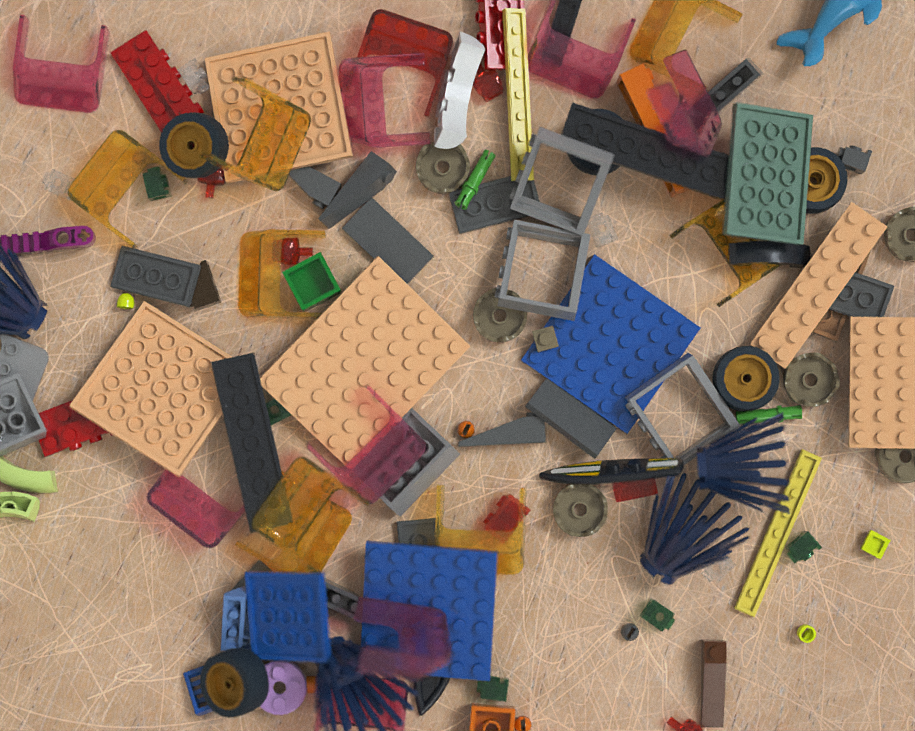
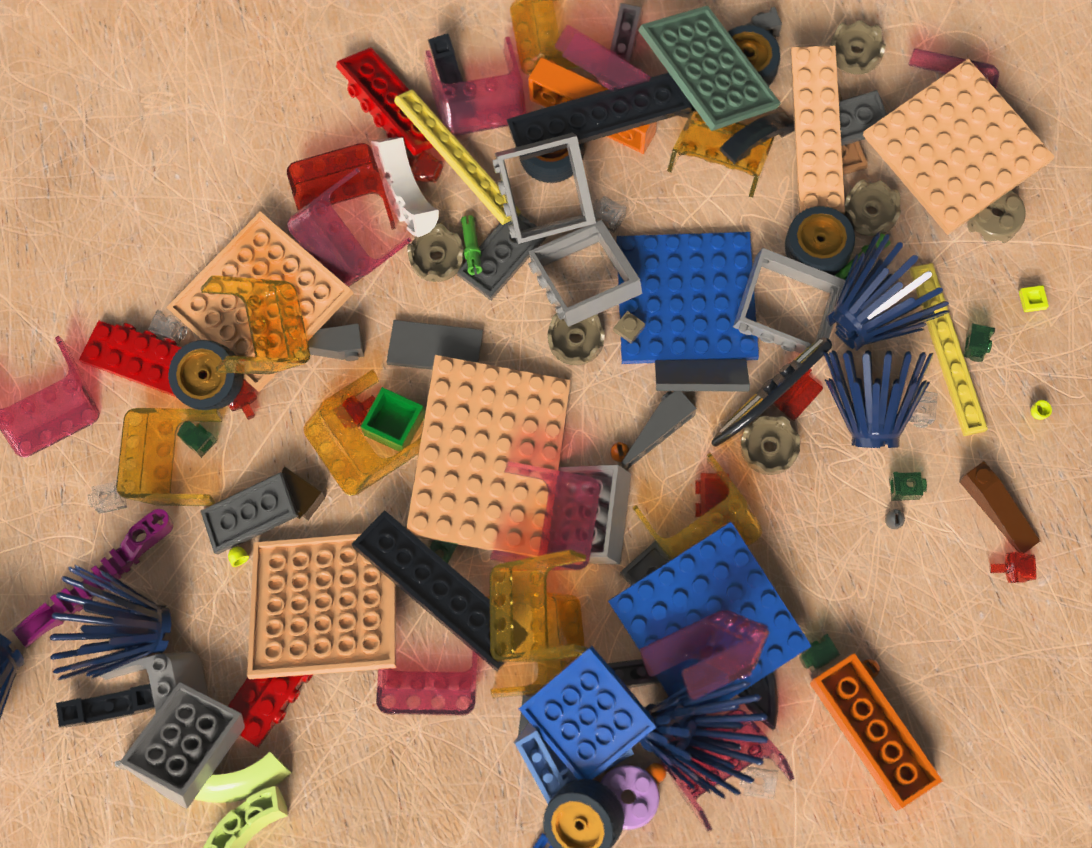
camera: 30 degrees left, 15 degrees down
(364, 184) = (380, 309): dark grey slope -> none

